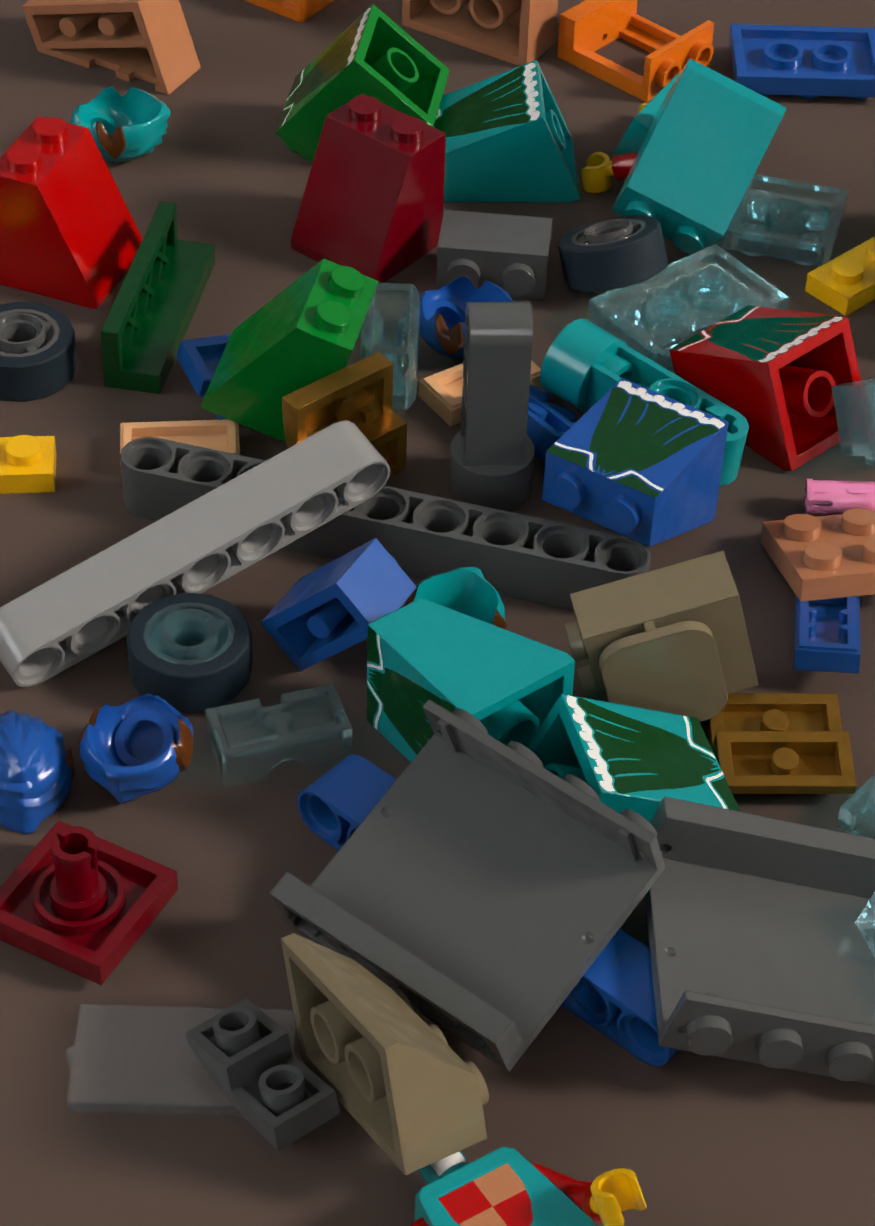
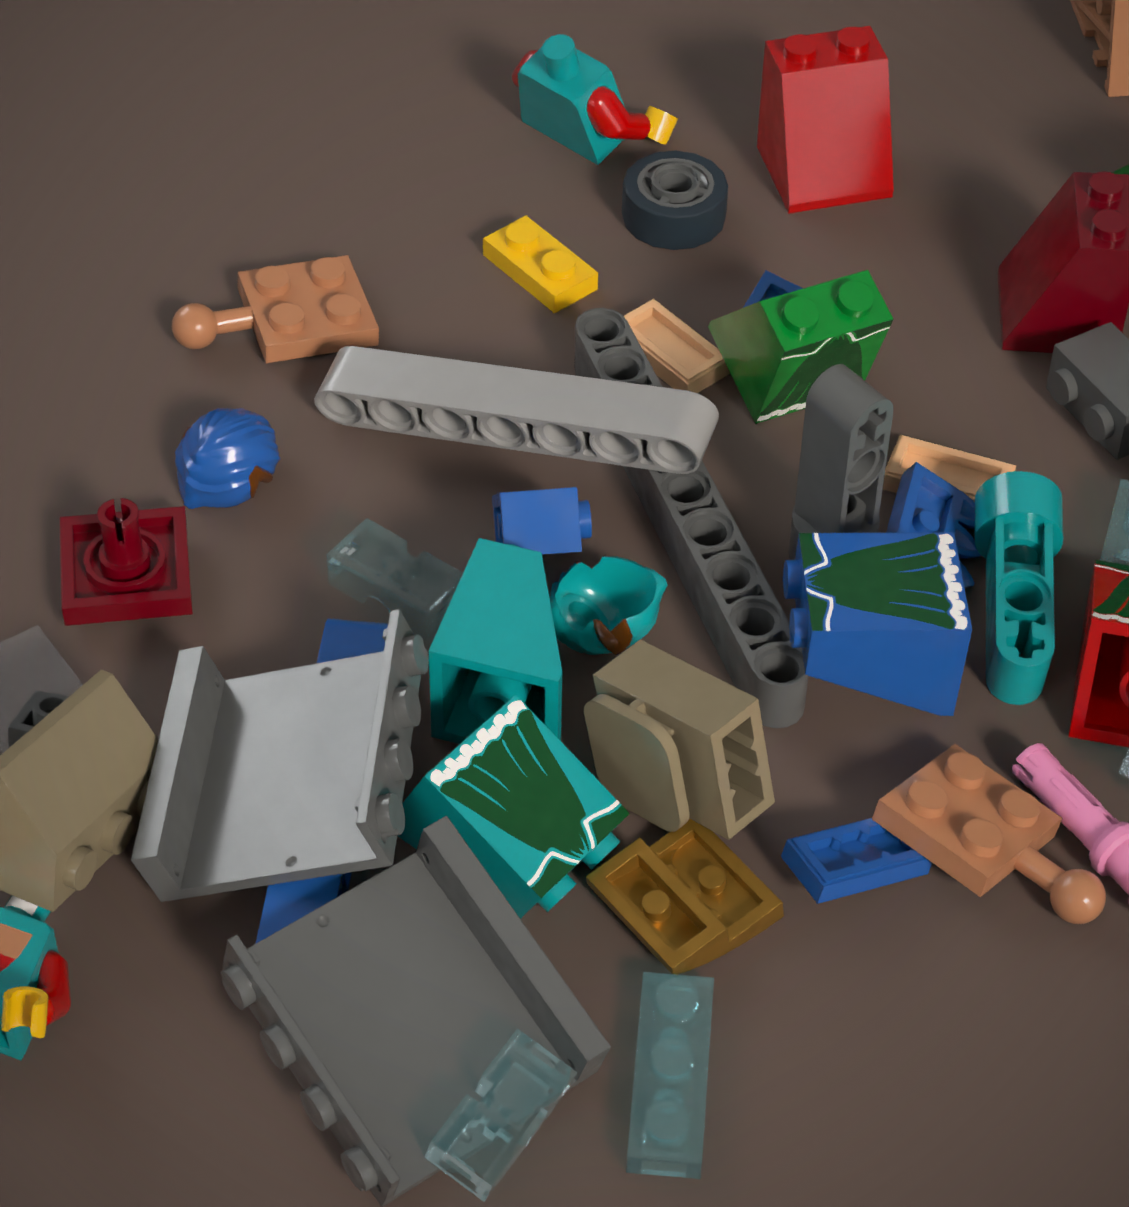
camera: 55 degrees right, 5 degrees up
(124, 124) = (1001, 88): teal hair -> none
(136, 746) = (292, 503): blue hair -> none
(154, 306) = (812, 242): dark green fence -> none
(190, 651) = (428, 477): black wheel -> none
(353, 394) = (758, 415): pearl gold slope -> none
(393, 330) = (916, 376): clear light blue brick -> none
(445, 311) = (996, 415): blue hair -> none

